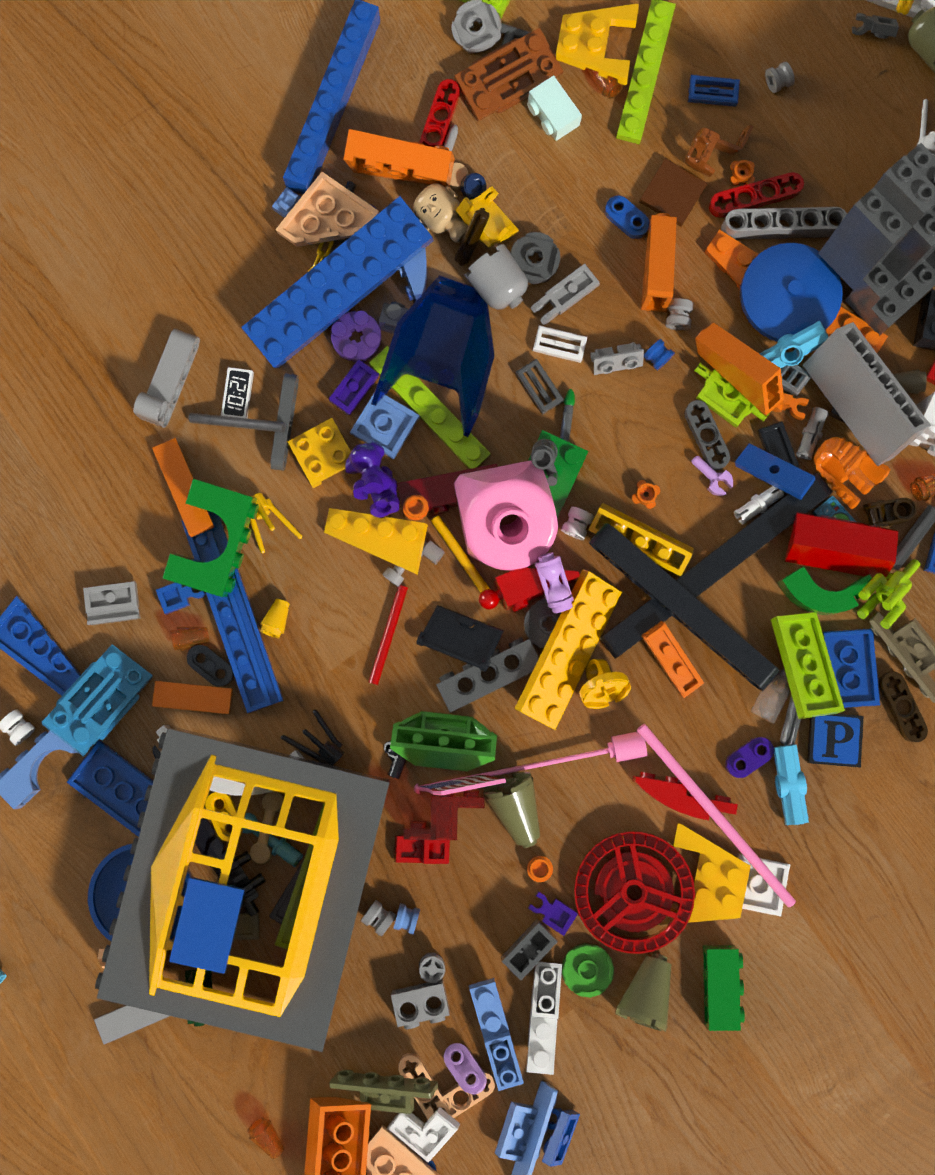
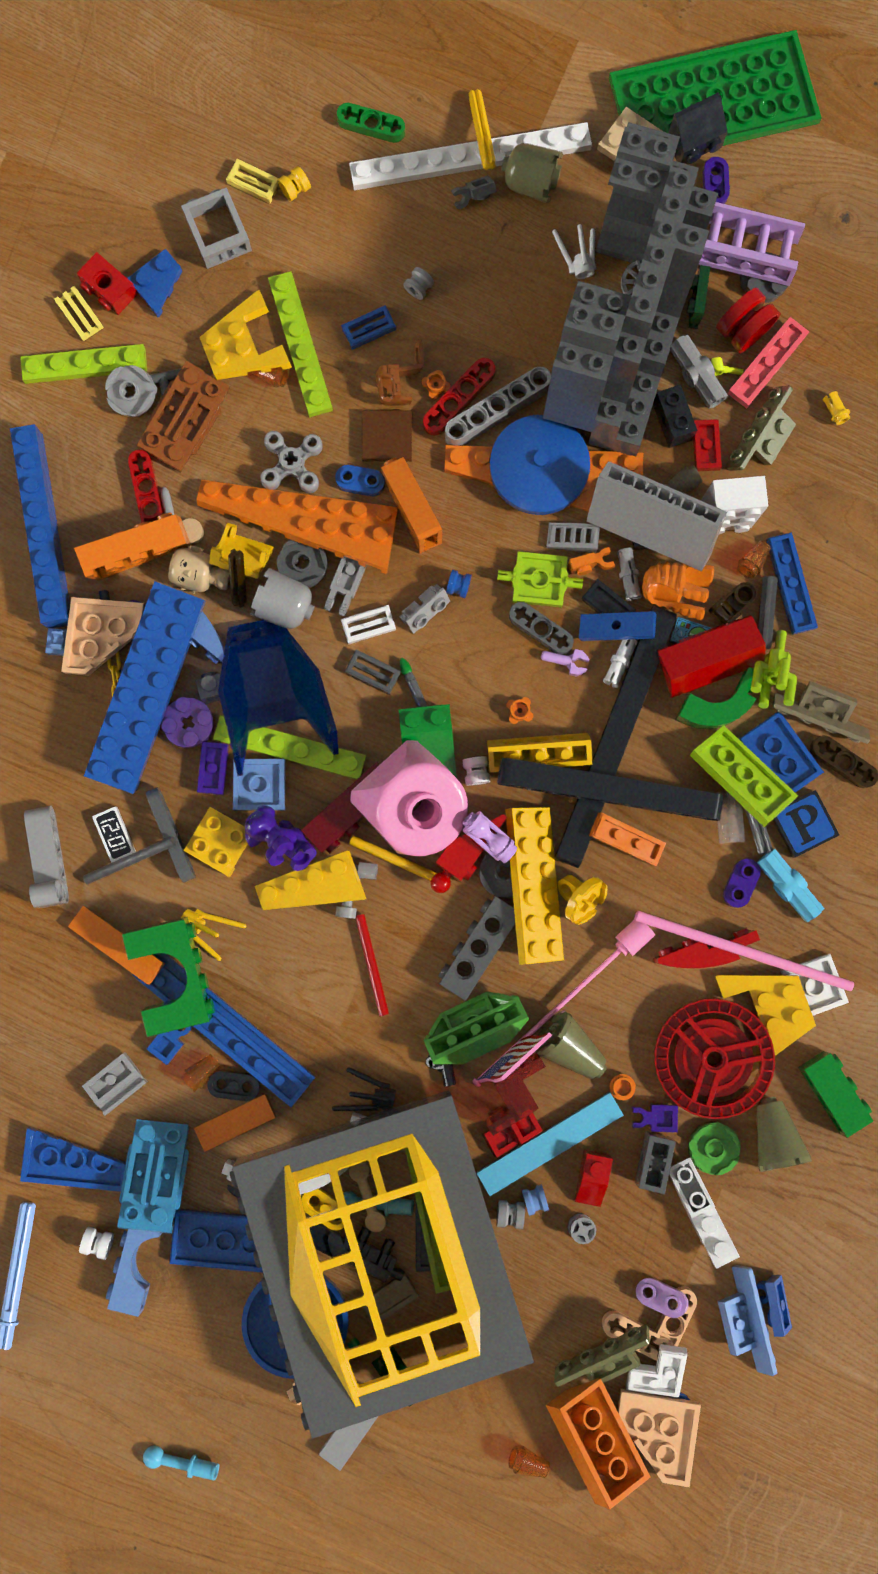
camera: 30 degrees left, 0 degrees up
(207, 925) = (370, 1317): blue tile -> none
(275, 619) = (266, 1010): yellow cone -> none
(415, 507) = (330, 842): orange plate -> none
(418, 996) = (585, 1261): light grey brick -> none
(448, 879) = (549, 1143): none -> medium azure tile
(451, 635) = (437, 933): black door -> none
(467, 930) = (593, 1177): none -> red slope
(473, 185) = (210, 531): dark blue tile -> none
(496, 1034) = (670, 1252): medium blue slope -> none
(543, 457) = (415, 734): dark grey piece -> none
(554, 108) = (240, 423): light aqua brick -> none
(575, 158) = (296, 470): none -> light grey gear
(582, 241) = (333, 524): none -> orange wing
(679, 314) = (455, 538): light grey wheel -> none
(742, 367) = (536, 554): orange slope -> none
(803, 342) = (560, 526): medium azure piece -> none

